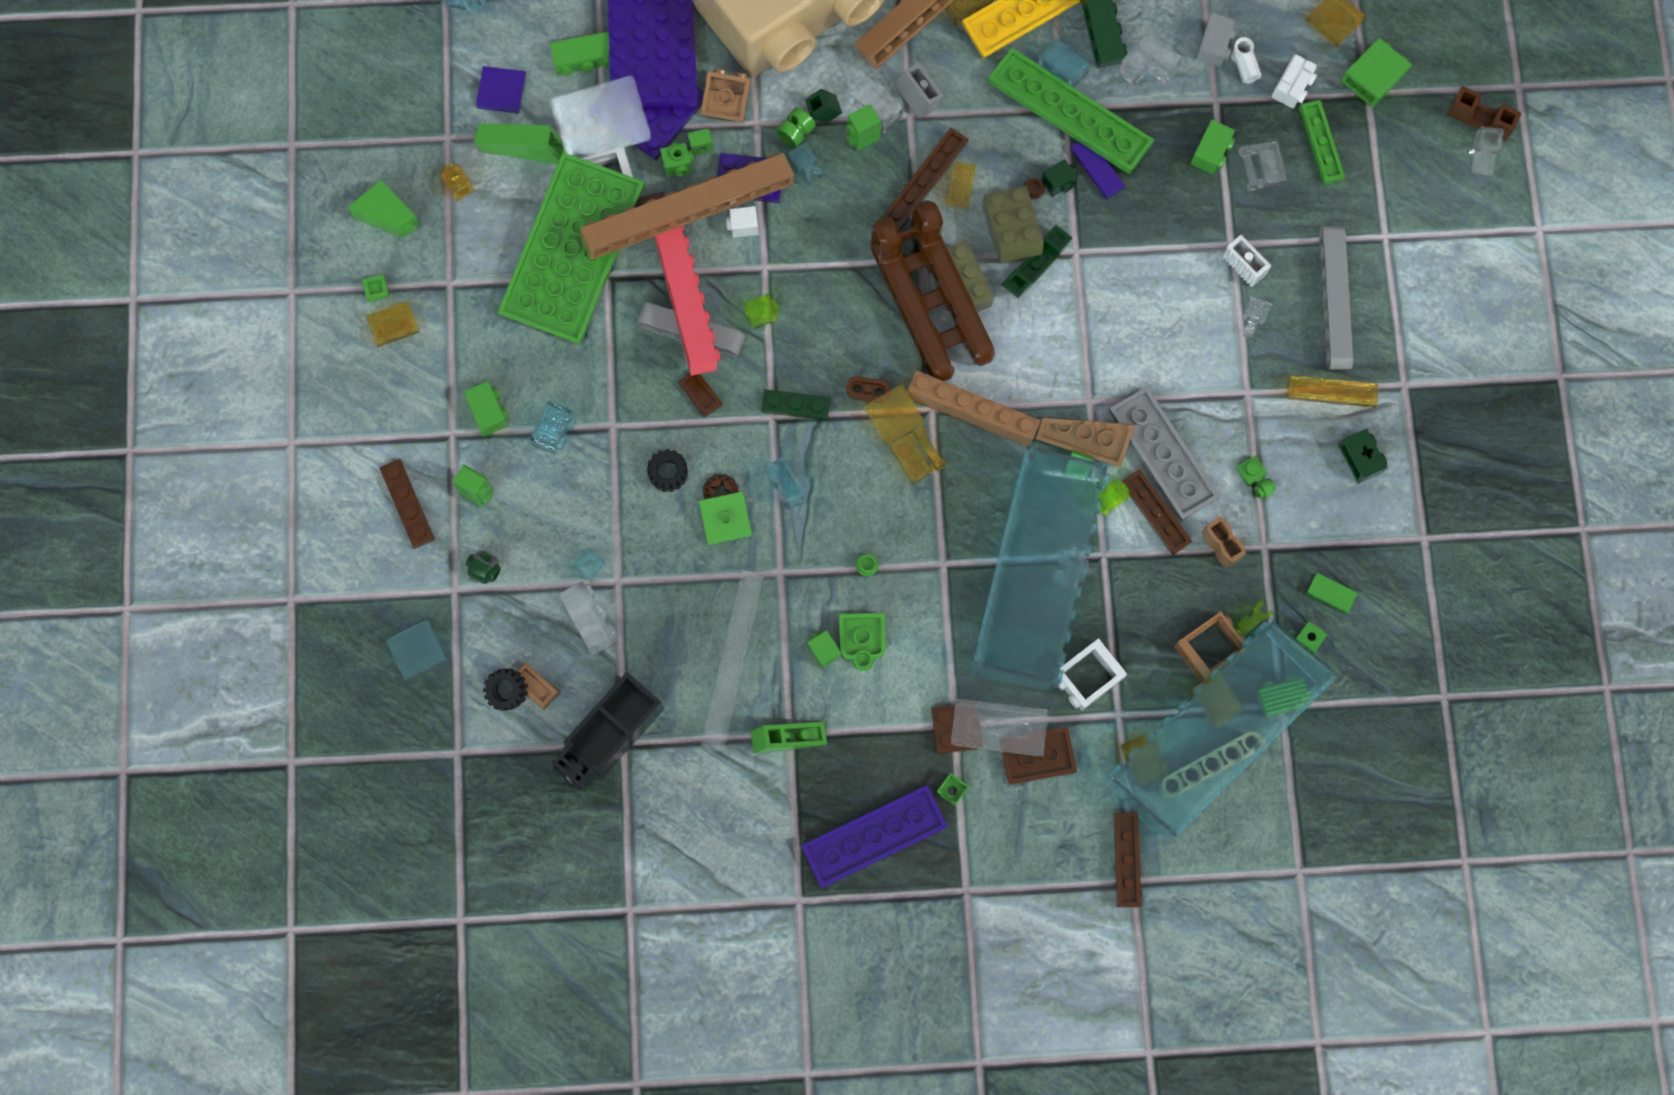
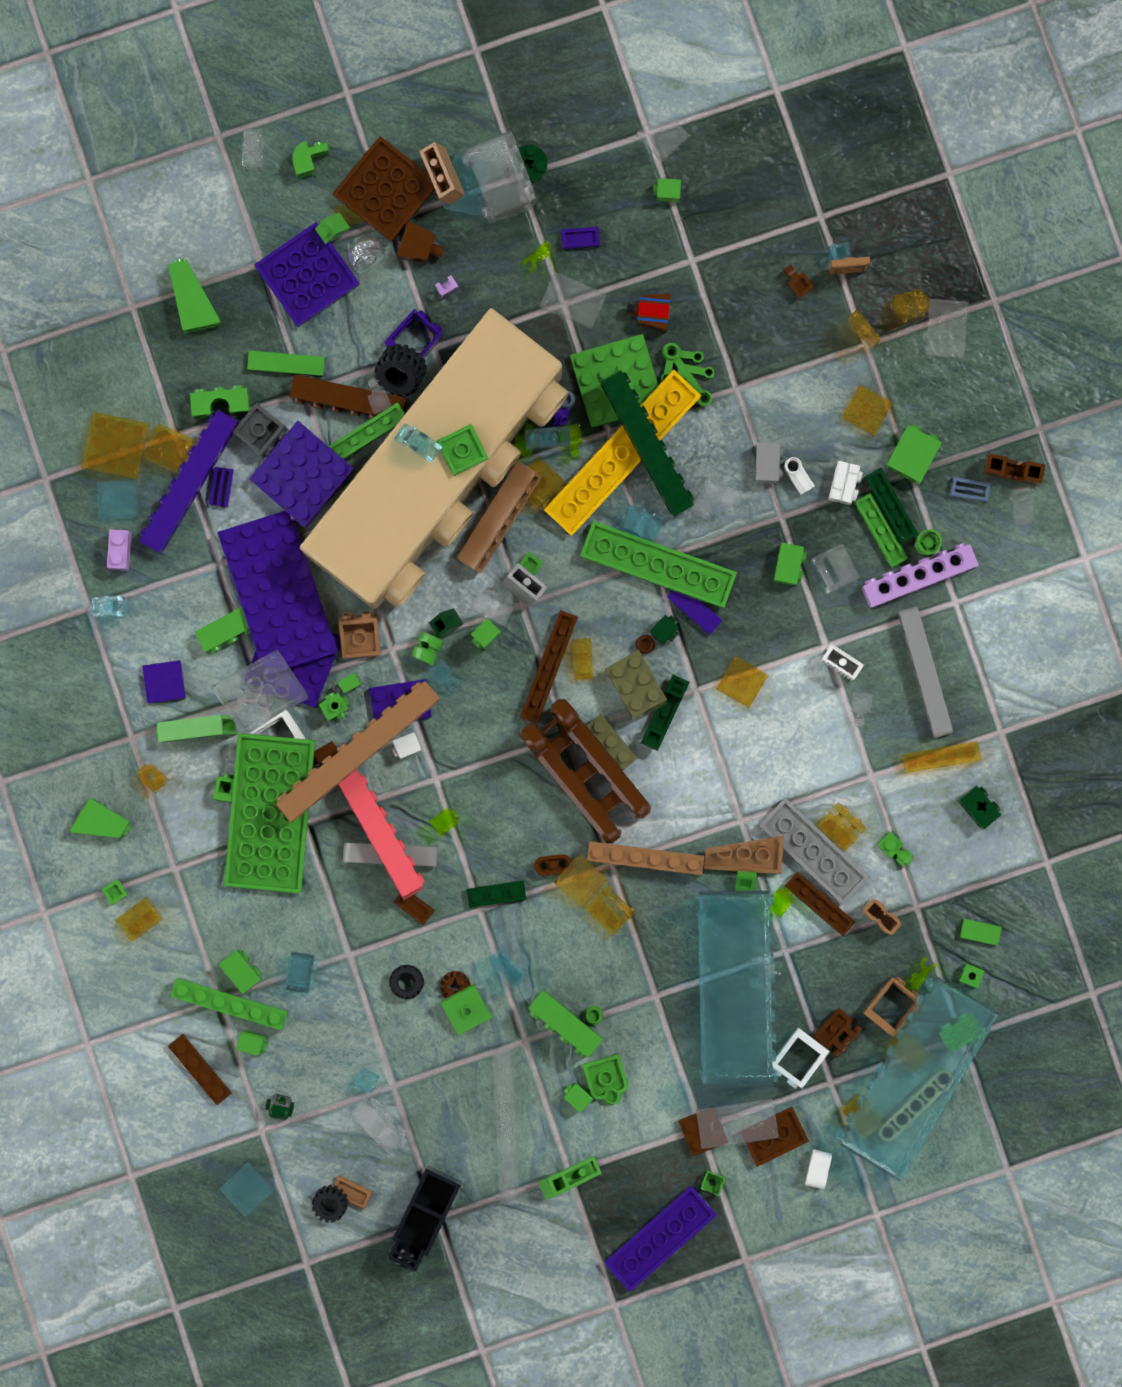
camera: 10 degrees left, 10 degrees up
(463, 439) = (229, 1003): none -> bright green brick
(524, 214) = (221, 782): none -> bright green brick
(833, 560) = (564, 1022): none -> bright green brick
(935, 72) = (531, 563): none -> bright green plate
(1079, 807) = (818, 1169): none -> white axle
(1127, 860) = (867, 1200): reddish brown plate -> none
(1129, 255) = (742, 682): none -> clear yellow plate
(1138, 652) = (833, 1028): none -> reddish brown plate
(1197, 440) = (837, 831): none -> clear yellow plate
(1301, 207) = (876, 598): none -> lavender brick
(1339, 118) = (891, 505): none -> dark green plate
(1371, 163) = (928, 542): none -> bright green wheel
(1428, 129) = (970, 497): none -> sand blue tile

